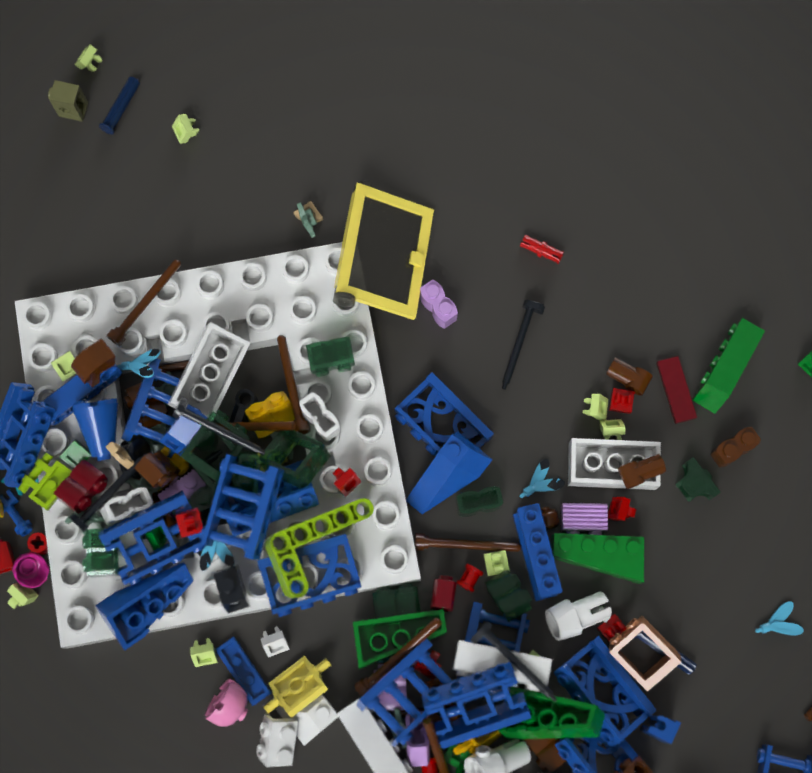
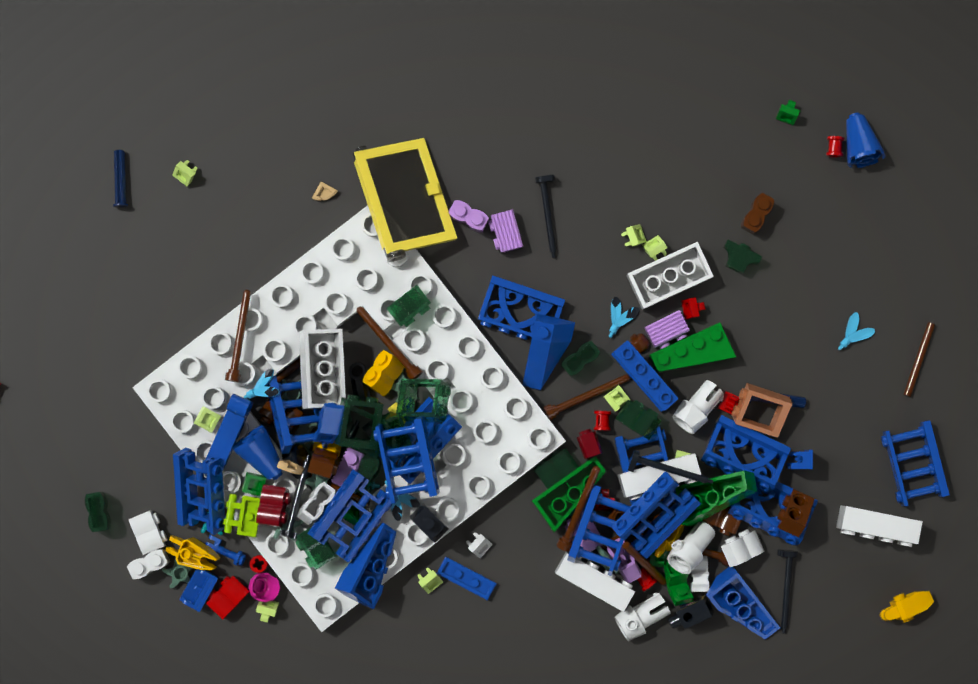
camera: 30 degrees left, 10 degrees up
(68, 100) = (78, 199): olive brick -> none
(86, 58) = (69, 152): yellowish green tile -> none
(93, 362) = (234, 409): reddish brown brick -> none
(181, 410) = (322, 412): black piece -> none
(189, 522) = (372, 491): red tile -> none
(228, 705) = (469, 609): bright pink cylinder -> none
(265, 426) = (386, 386): reddish brown bar -> none
(277, 741) = (520, 616): white bracket -> none
(297, 686) = (514, 568): light yellow plate -> none
(307, 219) = (328, 200): sand green animal -> none
(310, 534) = (468, 454): lime beam -> none
(312, 718) = (531, 583): white slope -> none
(323, 420) = (422, 357): white brick -> none
(330, 549) = (455, 486): blue fence -> none
(346, 481) = (472, 397): red tile -> none
(468, 338) = (506, 231): none -> lavender brick
(542, 249) = (528, 127): red pin -> none
(621, 401) = (651, 220): red tile -> none
(634, 378) = (650, 197): reddish brown piece -> none
(637, 472) = (691, 276): reddish brown piece -> none
(676, 390) = (690, 189): dark red tile -> none
(729, 365) = (722, 149): green wedge -> none

